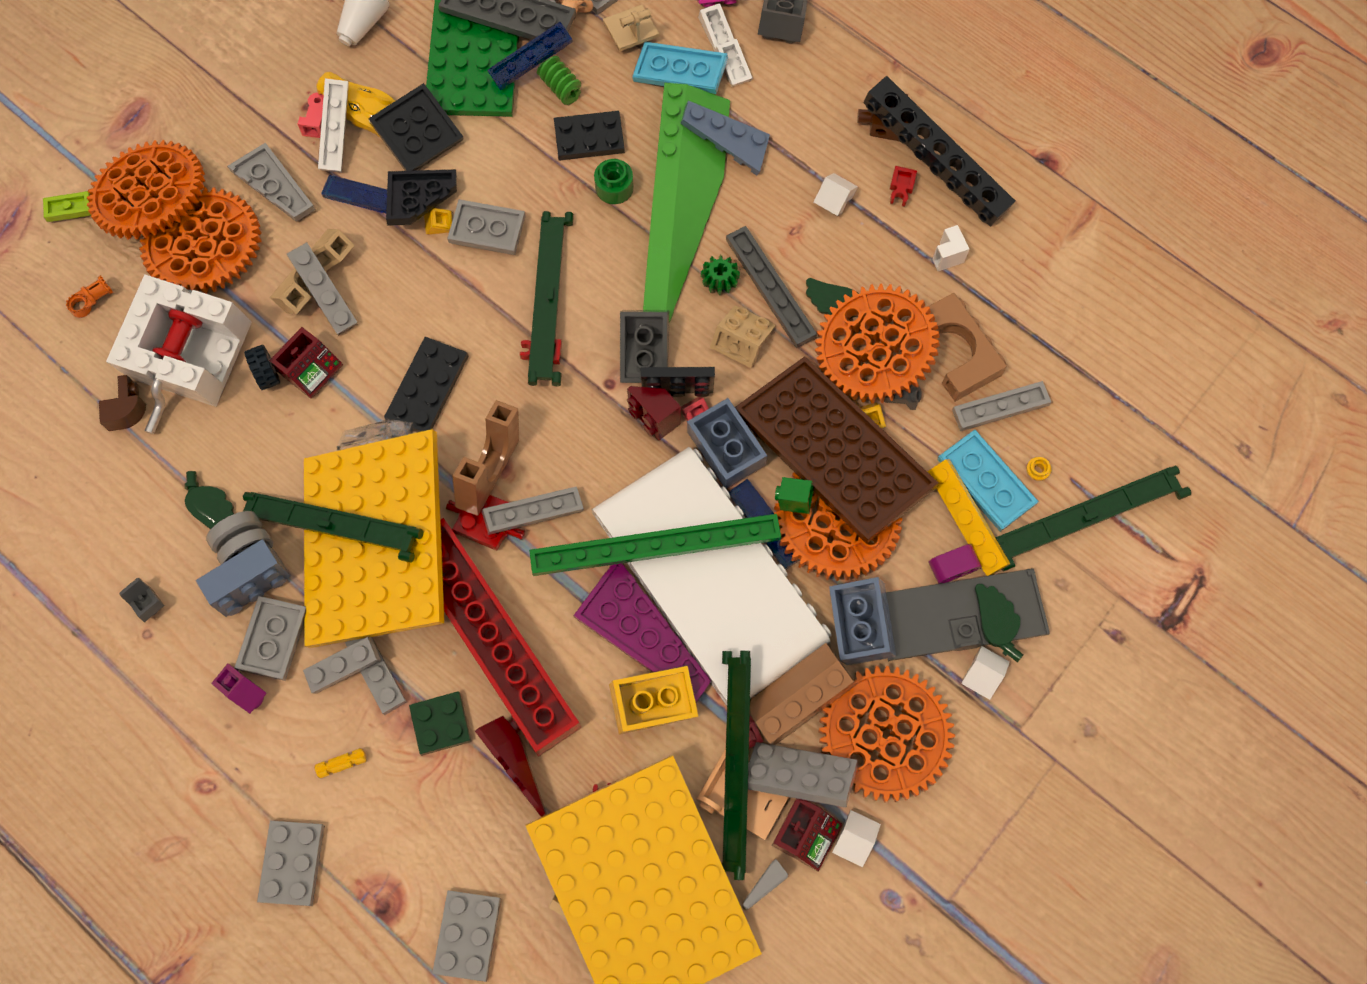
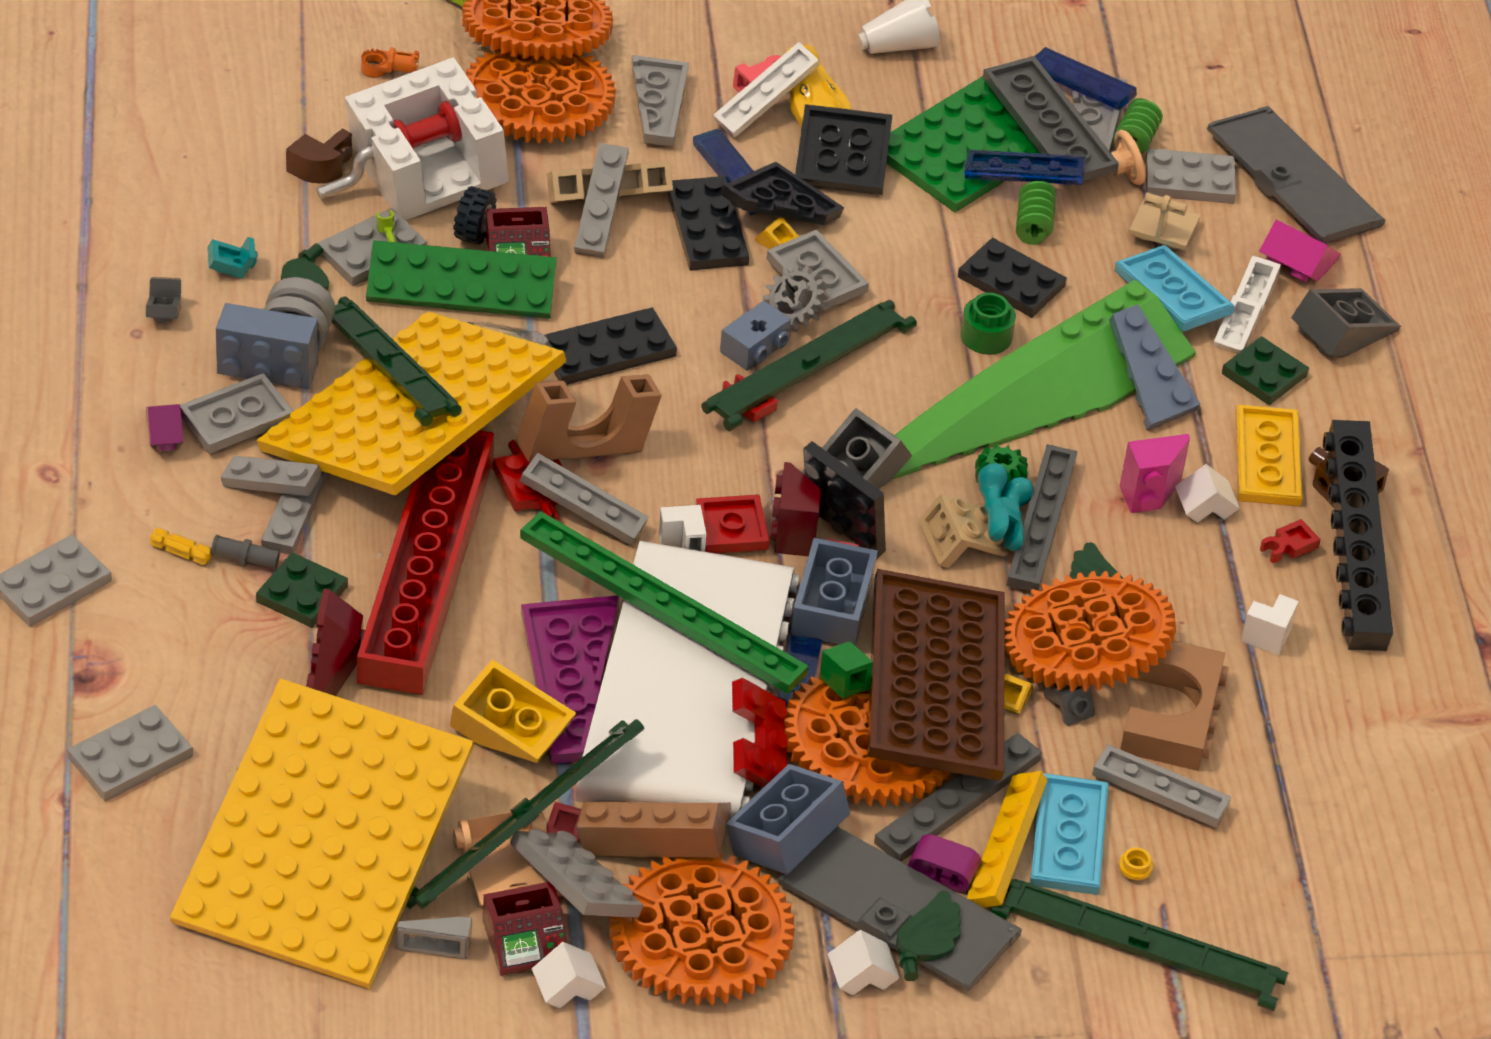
camera: 40 degrees right, 25 degrees down
(148, 529) = (232, 259): none -> teal bracket
(220, 423) = (386, 225): none -> lime hand
(220, 440) = (351, 249): none -> light grey plate
(299, 419) = (461, 279): none -> green plate
(382, 731) = (245, 552): none -> dark grey pin
(391, 247) = (707, 224): none -> black plate
(491, 253) = (798, 295): none -> light grey gear
(498, 292) = (755, 335): none -> sand blue brick
(606, 475) = (682, 527): none -> white piece
(622, 446) = (734, 524): none -> red plate
(741, 294) = (1003, 504): none -> teal piece
(775, 80) = (1265, 370): none -> dark green plate
(782, 565) = (768, 755): none -> red plate
(801, 206) = (1153, 471): none -> dark pink slope
(832, 136) = (1268, 455): none -> yellow tile
(915, 528) = (953, 801): none -> dark grey plate

